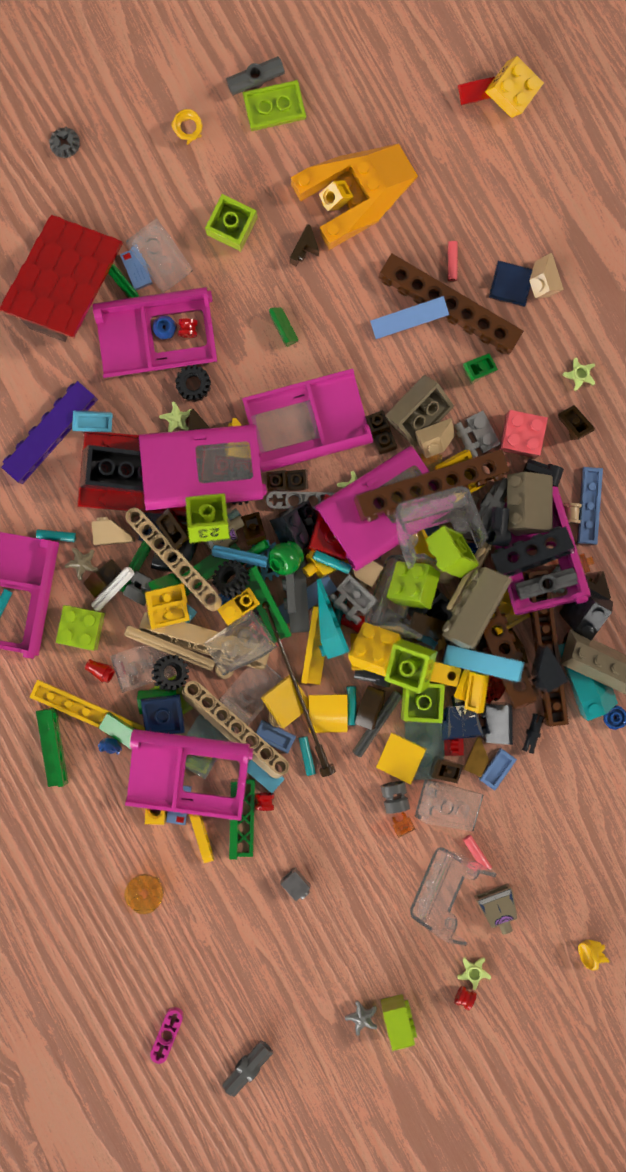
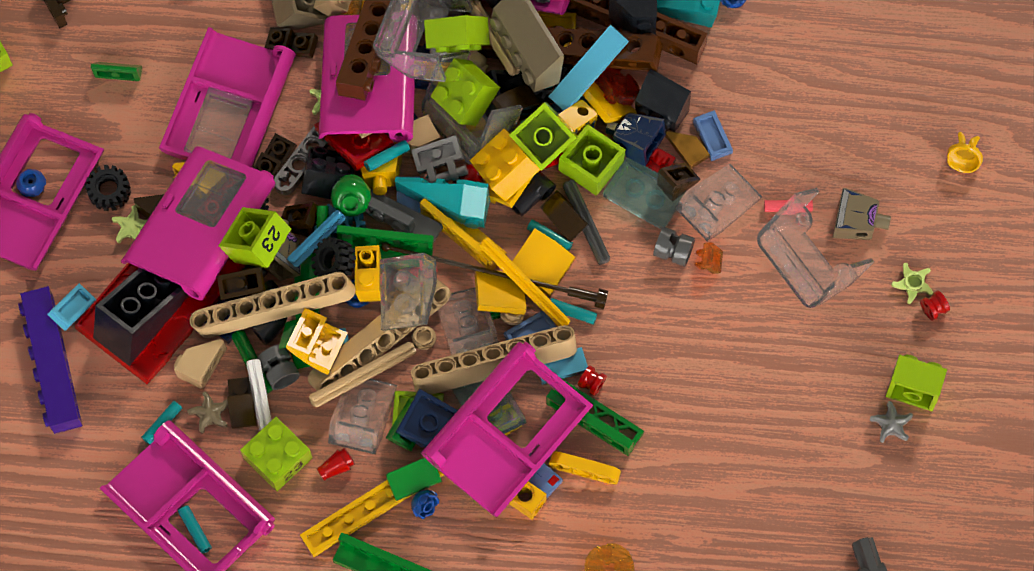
camera: 55 degrees left, 20 degrees down
(159, 675) = (389, 378): black tyre -> none
(187, 328) = (49, 158): red wheel -> none
(295, 884) = (702, 402): flat silver brick -> none
(301, 714) = (524, 283): none -> yellow axle
(401, 758) = (637, 217): yellow tile -> none
(476, 691) = (614, 96): yellow tile -> none
(533, 733) = (697, 79): black pin -> none

